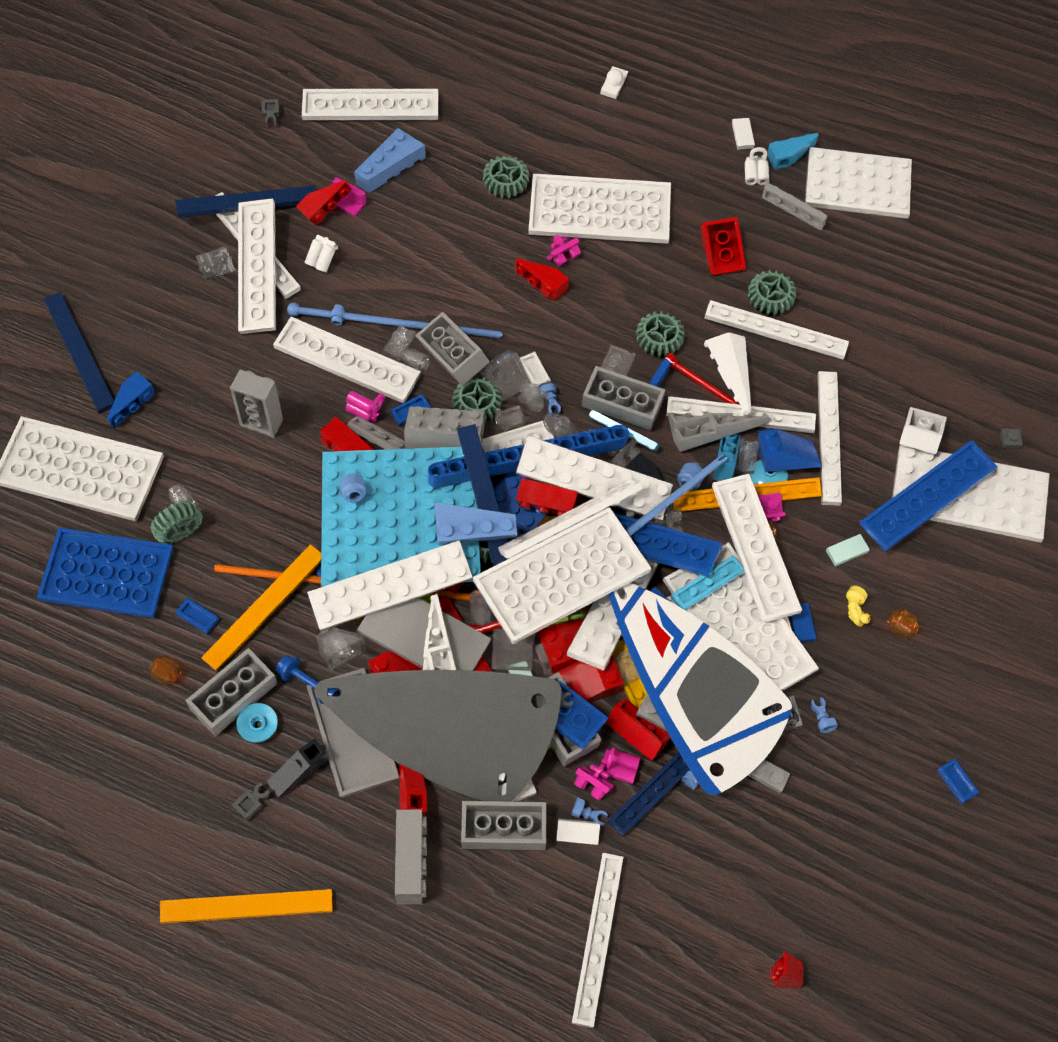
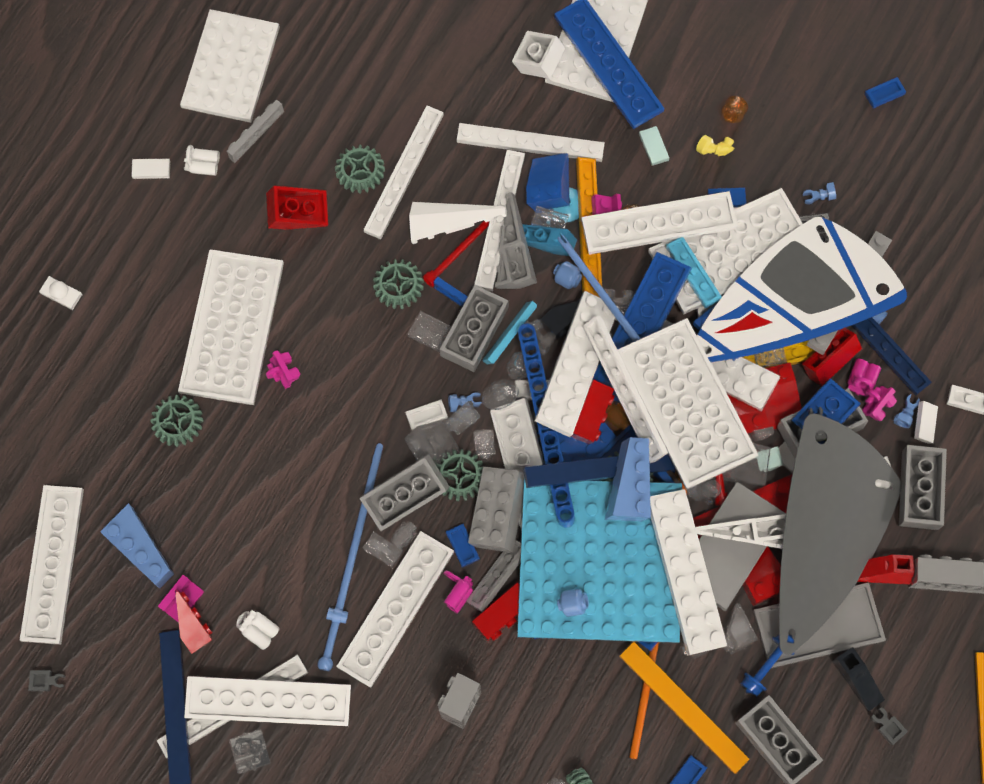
camera: 80 degrees left, 10 degrees up
(255, 714) = (818, 713): medium azure dish -> none
(546, 278) = (318, 390): red slope -> none
(788, 151) = (185, 127): dark azure slope -> none

